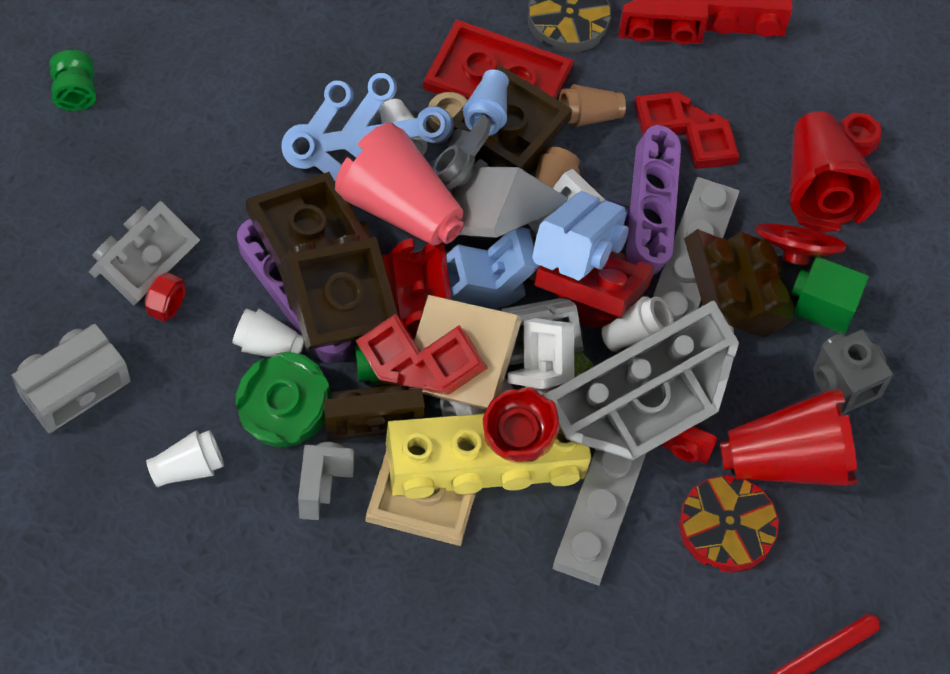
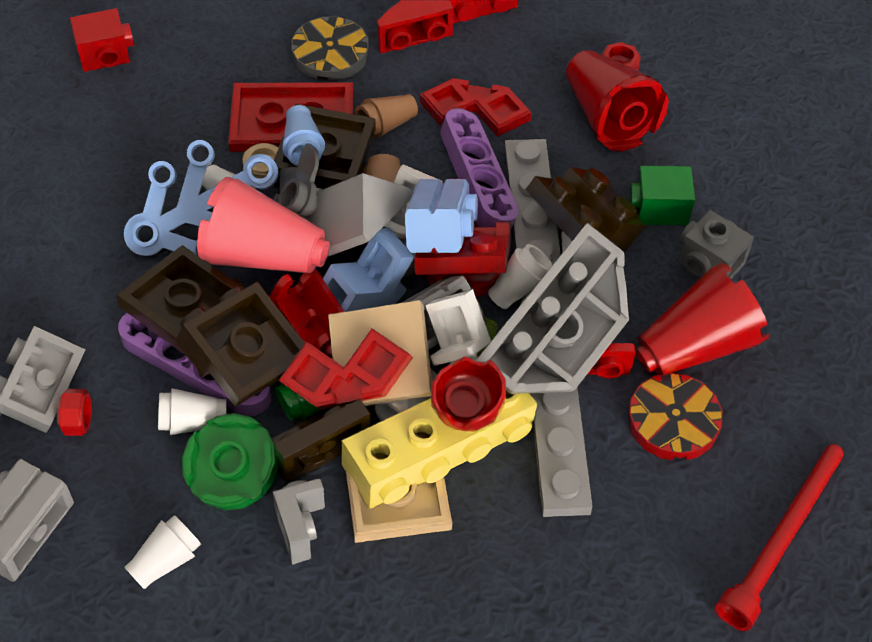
camera: 20 degrees left, 5 degrees down
(799, 242) = (619, 164): red dish -> none

